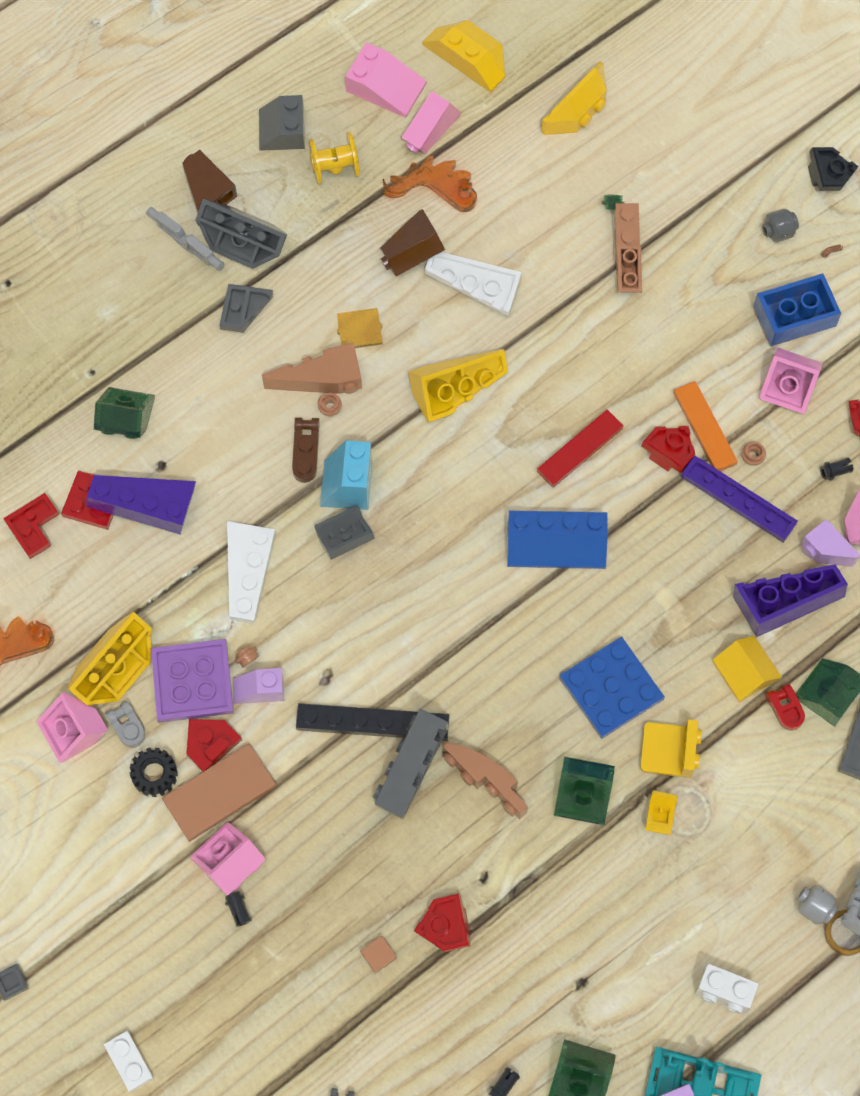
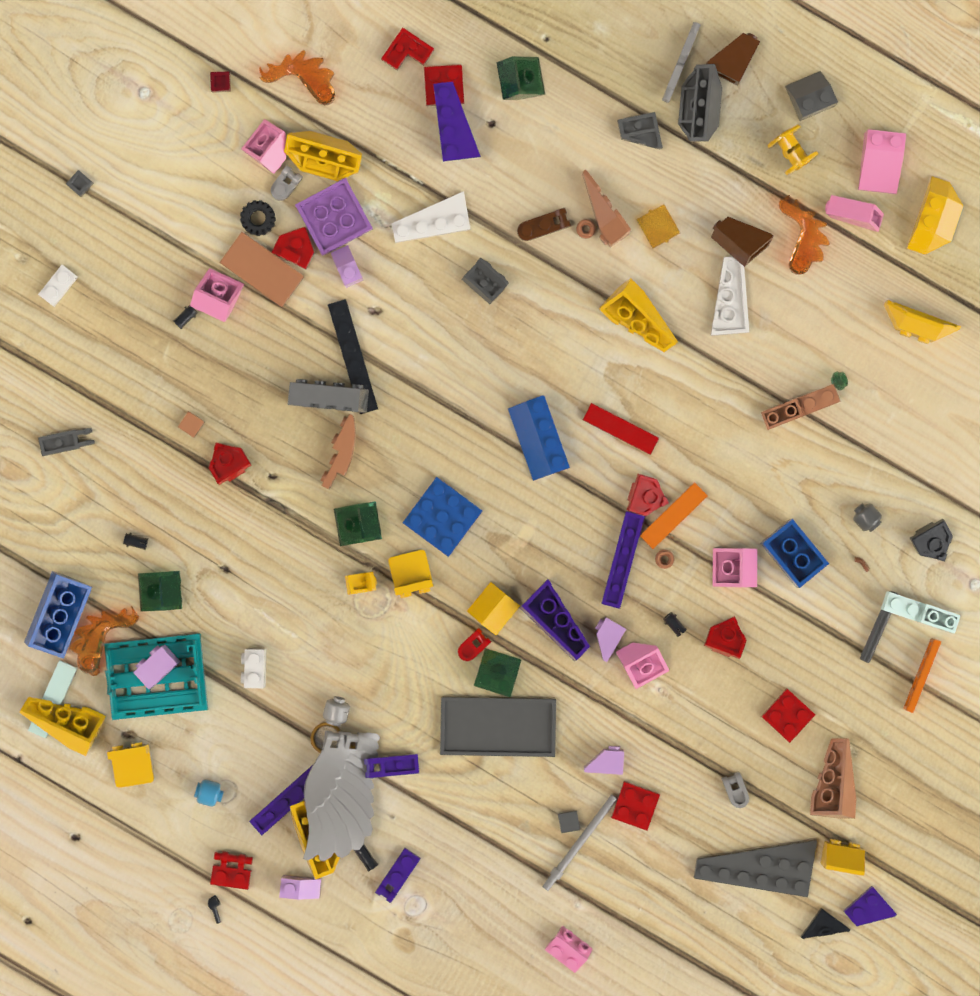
camera: 70 degrees right, 20 degrees up
(246, 656) = (366, 248): nougat plate -> none
(347, 476) = (527, 266): medium azure slope -> none

